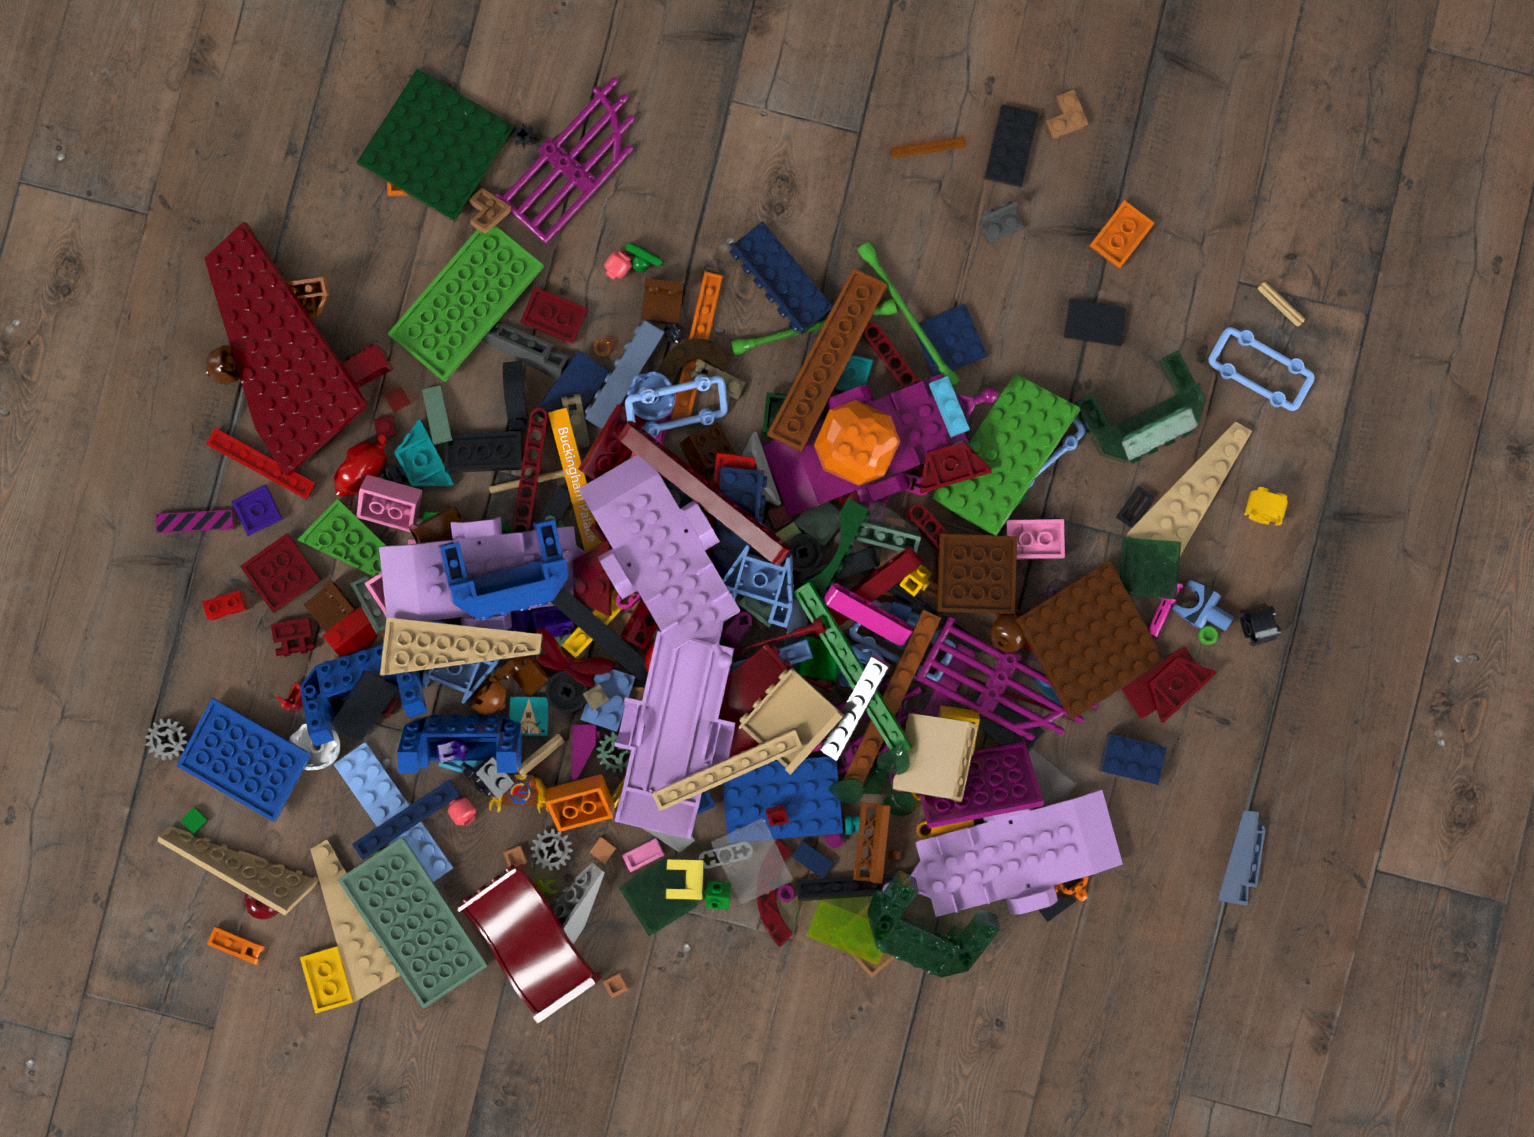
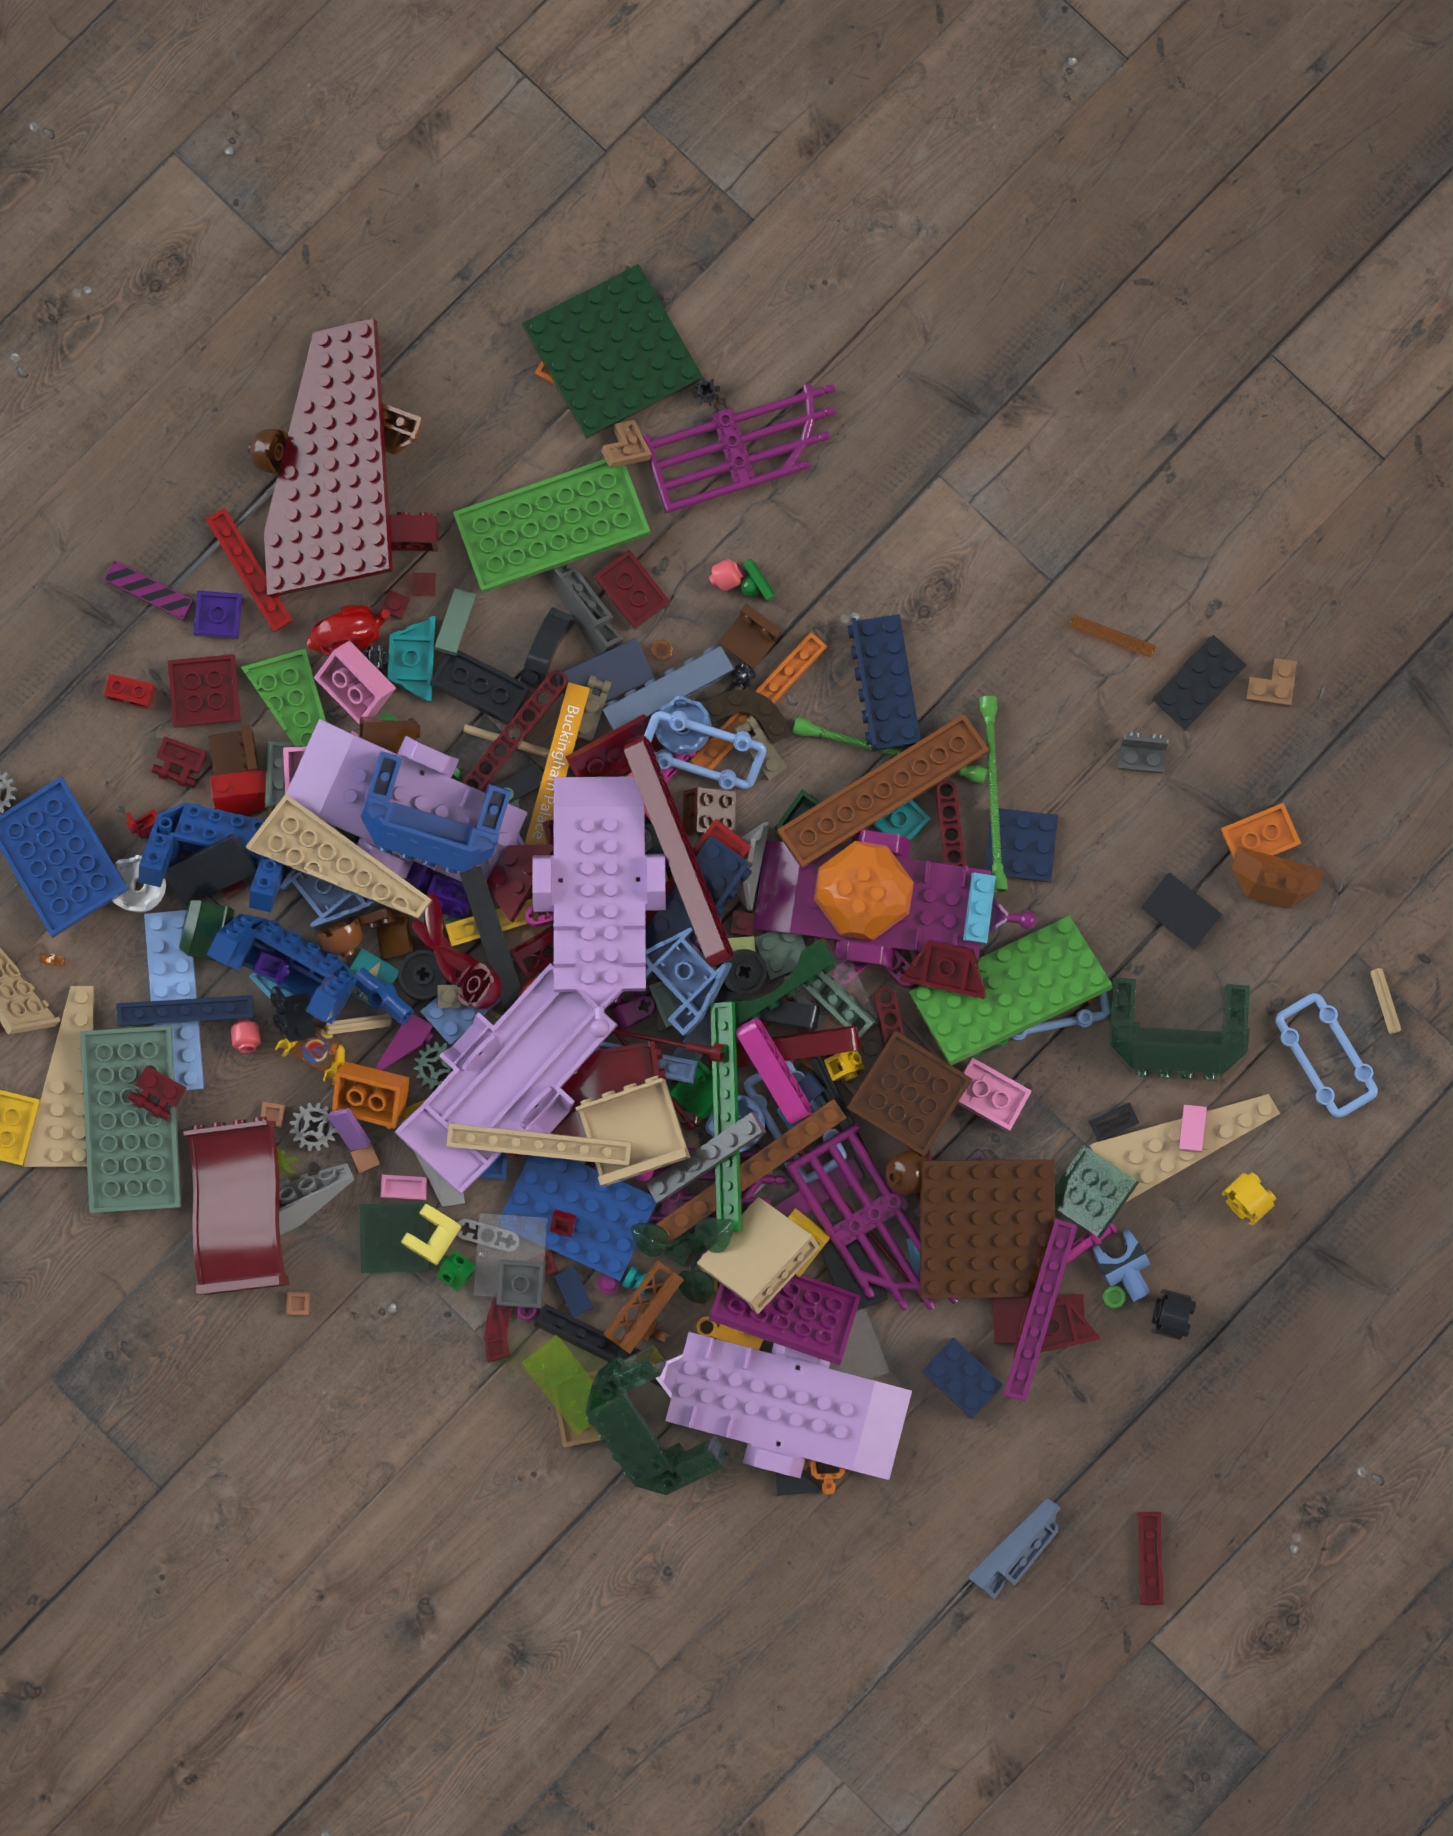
camera: 30 degrees right, 5 degrees down
(284, 837) = (51, 959): none -> clear orange tile
(382, 749) = (201, 926): none -> dark green slope
(421, 887) = (159, 1086): none -> dark red plate
(546, 724) = (383, 996): none -> blue piece
(579, 836) = (349, 1129): none -> medium lavender tile
(614, 678) = (479, 987): none -> dark red cylinder
(771, 877) = (521, 1283): none -> dark grey tile
(1150, 259) = (1274, 878): none -> dark orange wedge
(1163, 677) = (1040, 1310): none -> magenta plate
(1196, 479) = (1192, 1128): none -> bright pink tile
(1342, 810) = (1150, 1558): none -> dark red tile

